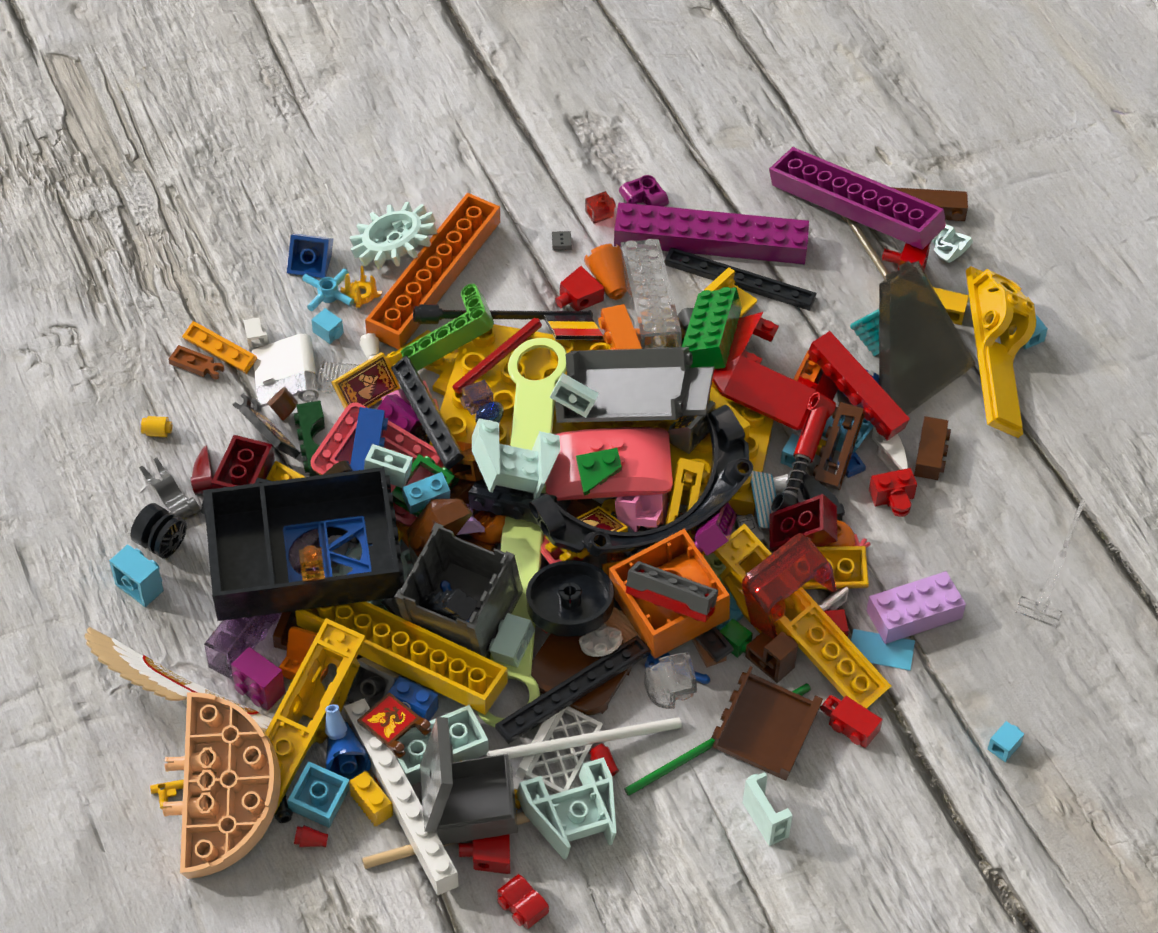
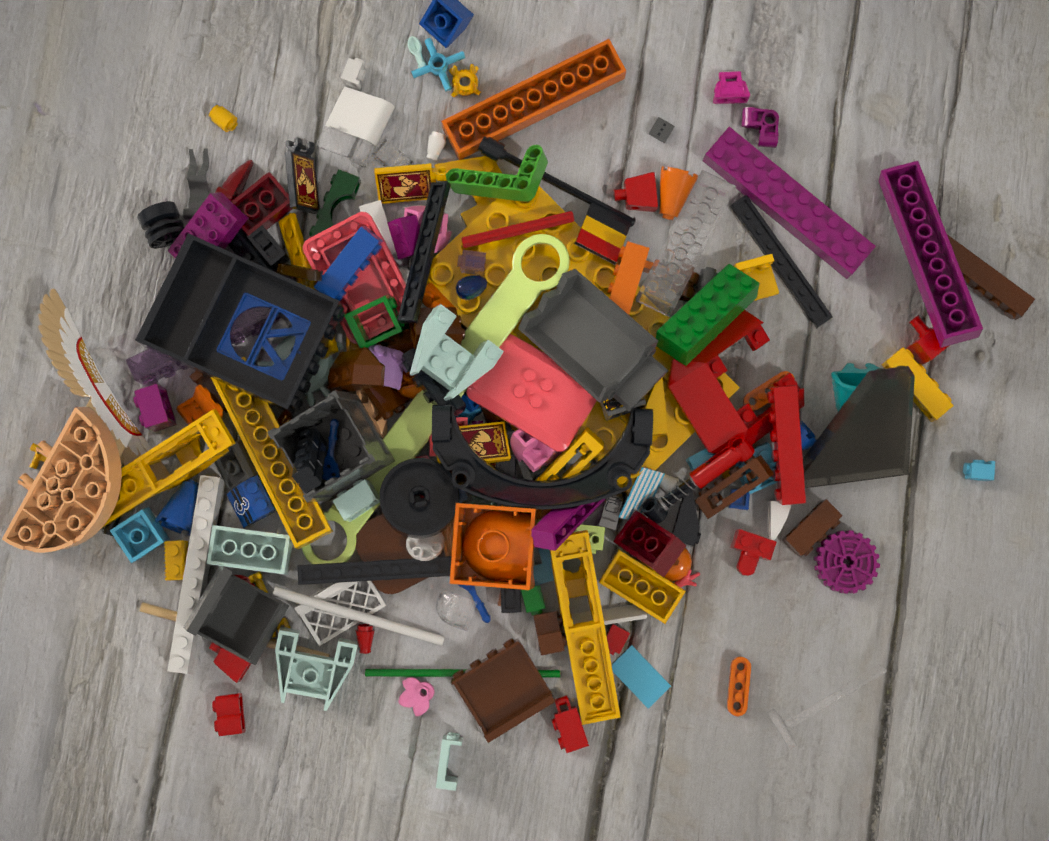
camera: 30 degrees right, 30 degrees up
(136, 575) = (122, 256): medium azure brick -> none
(194, 532) = (213, 222): none -> magenta brick
(195, 362) = (290, 72): dark orange plate -> none
(219, 347) = (319, 68): light orange tile -> none
(283, 403) = (329, 160): reddish brown brick -> none
(297, 290) = (415, 48): none -> light aqua piece
(309, 837) = (116, 562): red cone -> none
(310, 558) = (221, 363): clear orange brick -> none
(327, 326) = (415, 102): medium azure brick -> none
(334, 724) = (177, 493): light blue cone -> none
(377, 238) = (524, 31): light aqua gear -> none
(390, 721) = (221, 514): flag -> none
(395, 464) = (348, 296): light aqua brick -> none
(421, 492) = (366, 336): medium azure brick -> none
(574, 395) = (541, 319): light aqua brick -> none
(597, 467) = (513, 401): green wing -> none
(598, 181) = (730, 91): none -> dark pink piece
(600, 207) = (715, 116): clear red brick -> none
(671, 591) = (482, 562): dark grey piece -> none
(690, 783) = (413, 695): none -> bright pink plate
(780, 577) = (590, 596): clear red windscreen -> none
(867, 246) = (908, 311): dark tan bar -> none
(915, 607) = (689, 664): lavender brick -> none
(950, 244) = (988, 340): light aqua brick -> none
(972, 595) = (742, 694): none -> orange plate
(981, 457) = (839, 575): none -> magenta piece
(1002, 299) = (940, 469): yellow piece -> none
(1005, 741) = (671, 819): medium azure brick -> none

